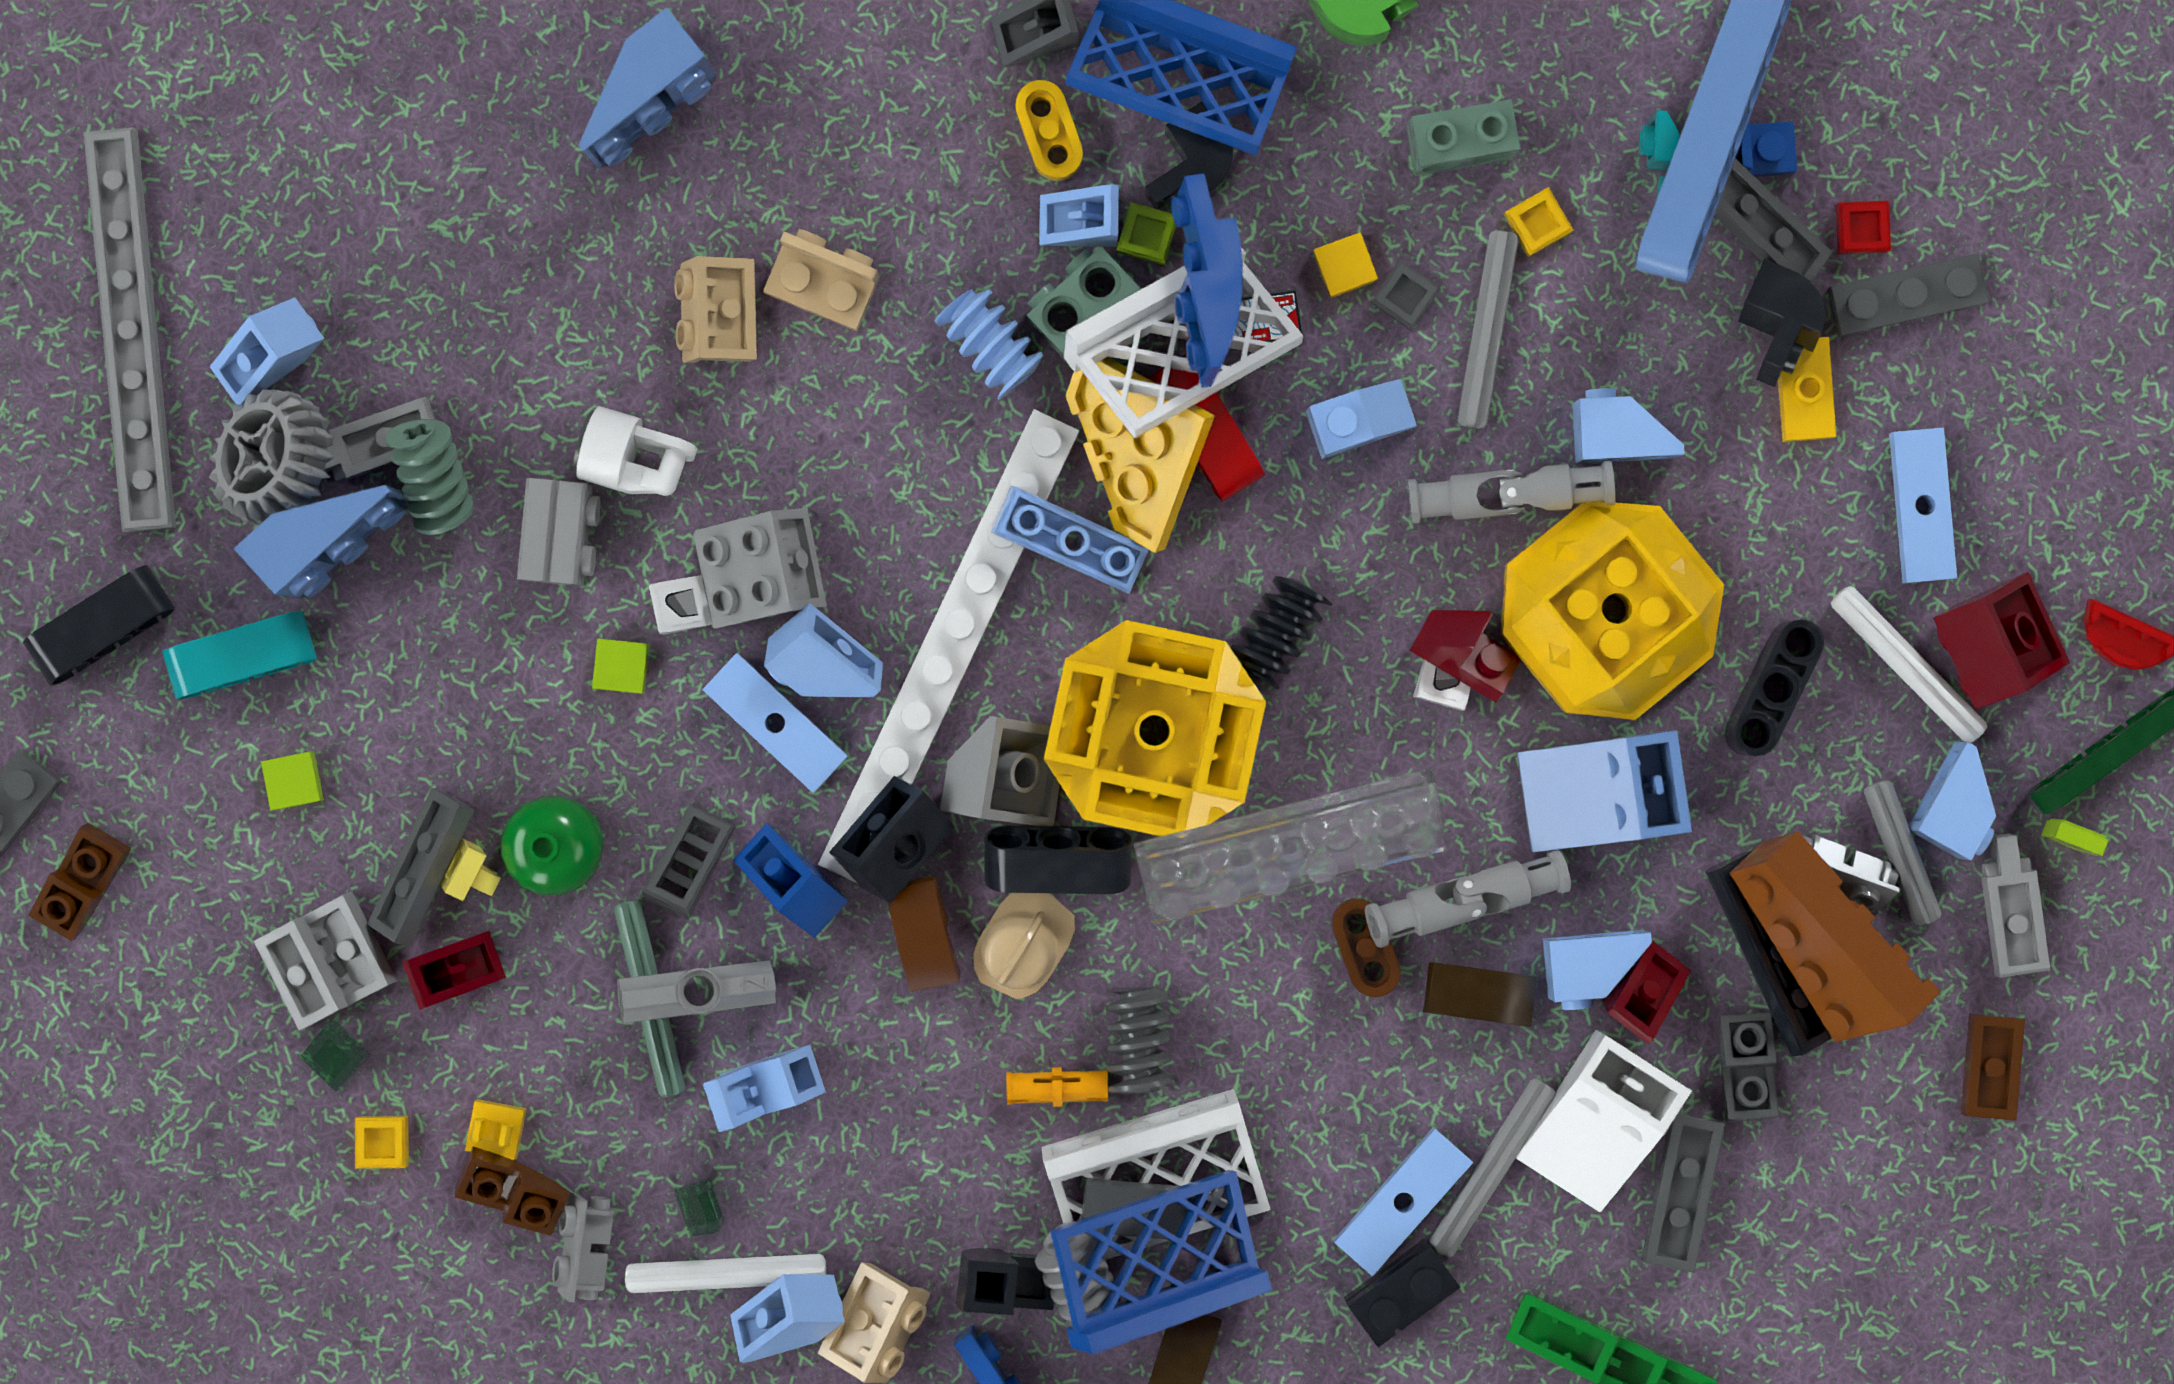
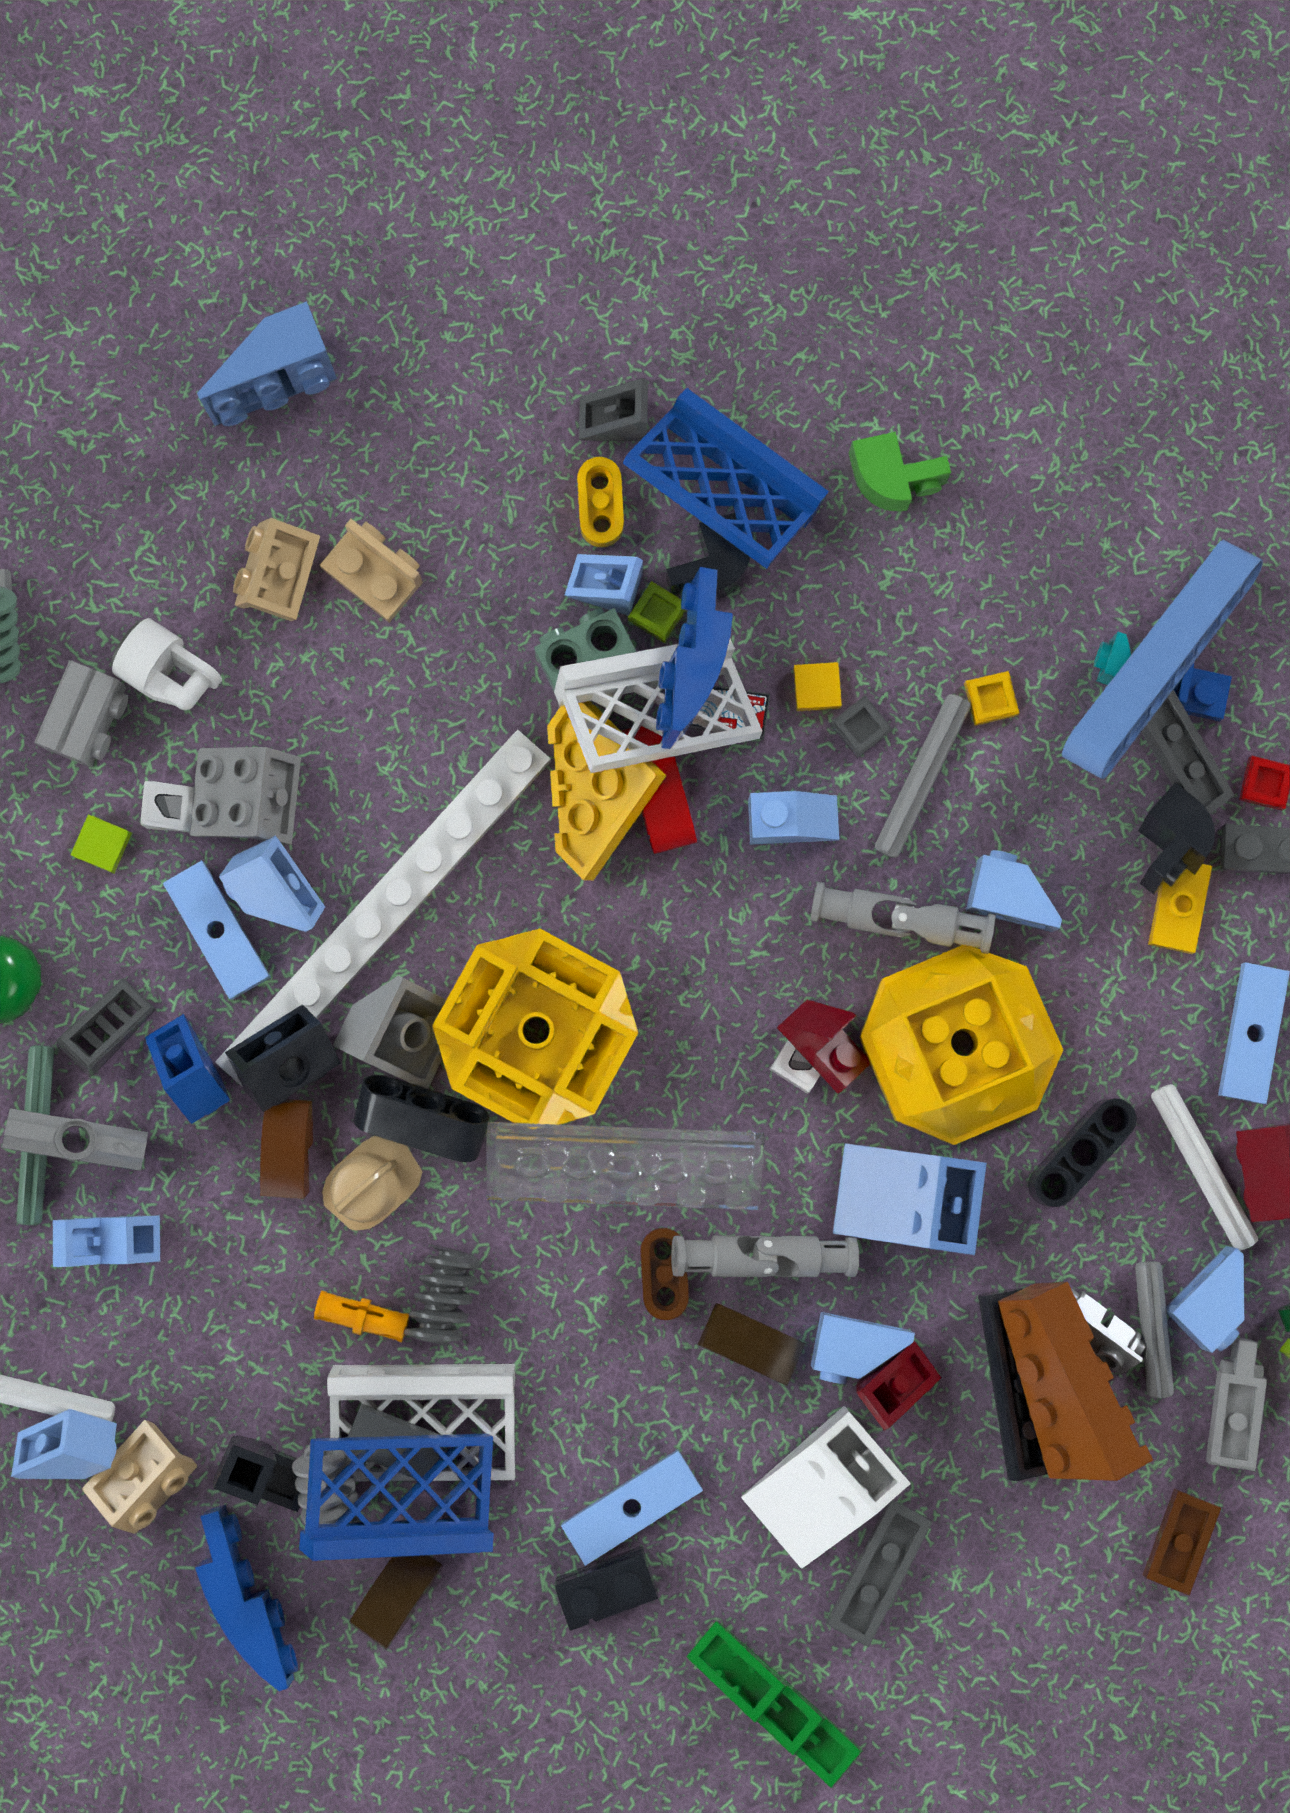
camera: 15 degrees right, 5 degrees down
(700, 1207) = (22, 1329): clear green slope -> none
(990, 340) = (495, 660): light blue piece -> none
(1044, 527) = (493, 831): light blue tile -> none
(1278, 629) = (669, 976): black piece -> none
(1462, 137) = (947, 608): sand green brick -> none
(1491, 1167) = (718, 1500): light grey axle -> none
(1747, 1067) = (967, 1478): dark grey slope -> none

